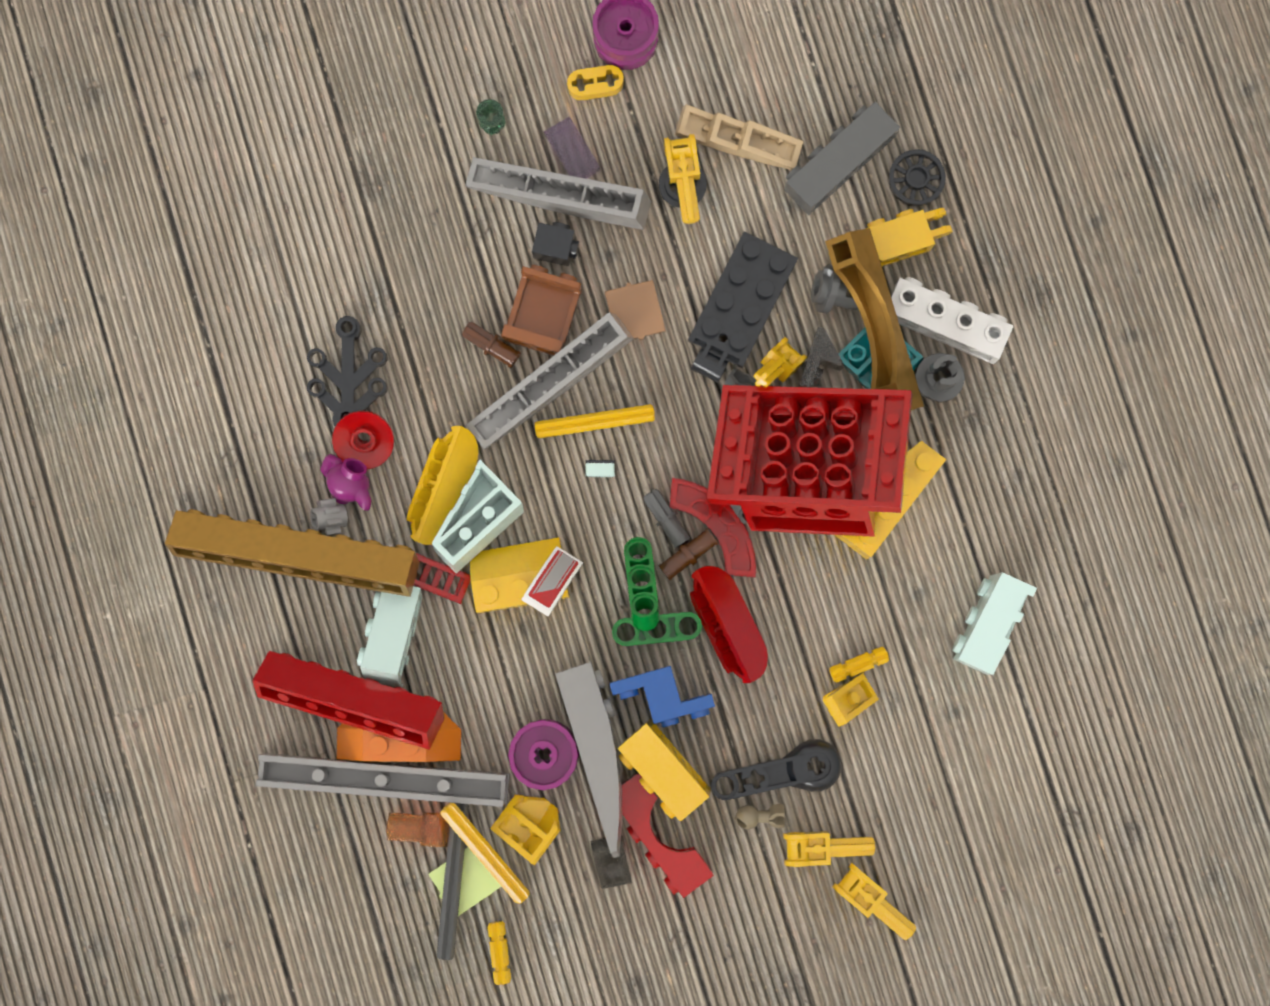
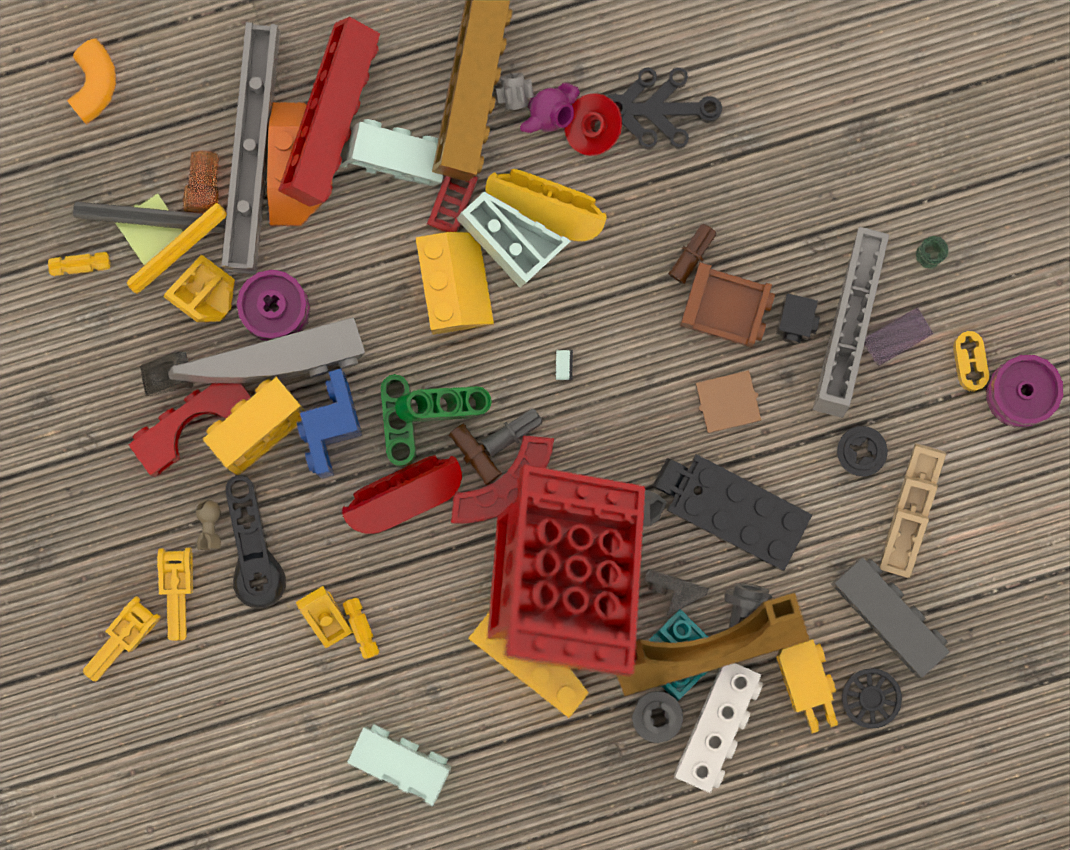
camera: 90 degrees right, 0 degrees up
(315, 936) = (99, 80): none -> light orange cylinder
(551, 379) = (655, 314): light grey slope -> none
(552, 581) = (445, 312): slope -> none
(594, 421) = (613, 359): yellow axle -> none
(683, 170) = (876, 451): yellow connector -> none
(779, 363) = (670, 547): yellow connector -> none

